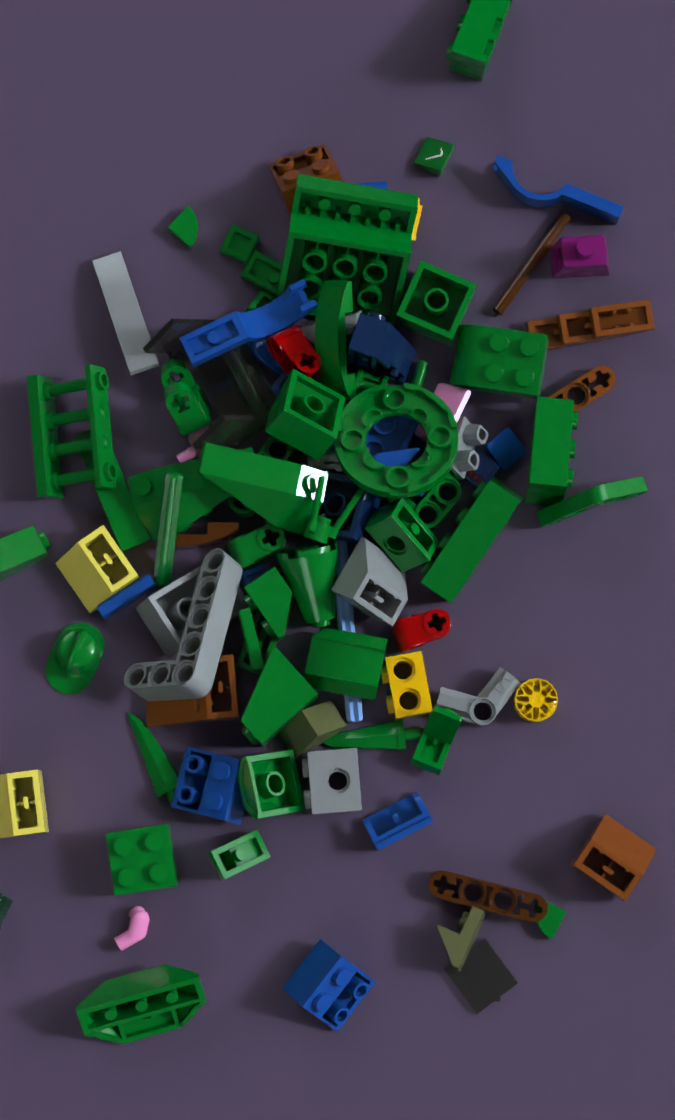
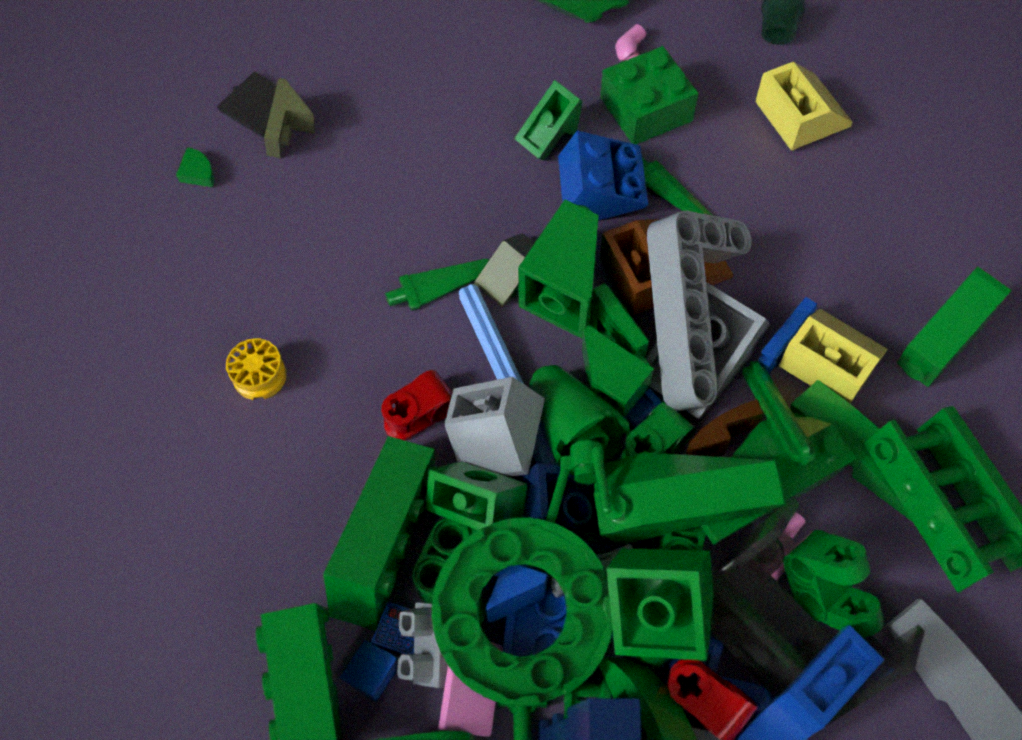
camera: 165 degrees right, 20 degrees down
(75, 658) = (811, 266): green piece -> none
(270, 784) = (538, 184): green slope -> none
(319, 768) = (473, 198): light grey brick -> none
(328, 985) = (414, 46): blue slope -> none
(345, 663) = (496, 334): green slope -> none
(397, 821) = (385, 204): blue hinge -> none
(415, 684) = (411, 340): yellow brick -> none
(436, 739) = (365, 283): green bracket -> none
(489, 892) = (265, 169): reddish brown beam -> none
(494, 695) = (310, 355): light grey piece -> none
(591, 498) = (216, 619): green beam -> none
(614, 858) = (128, 229): dark orange slope -> none

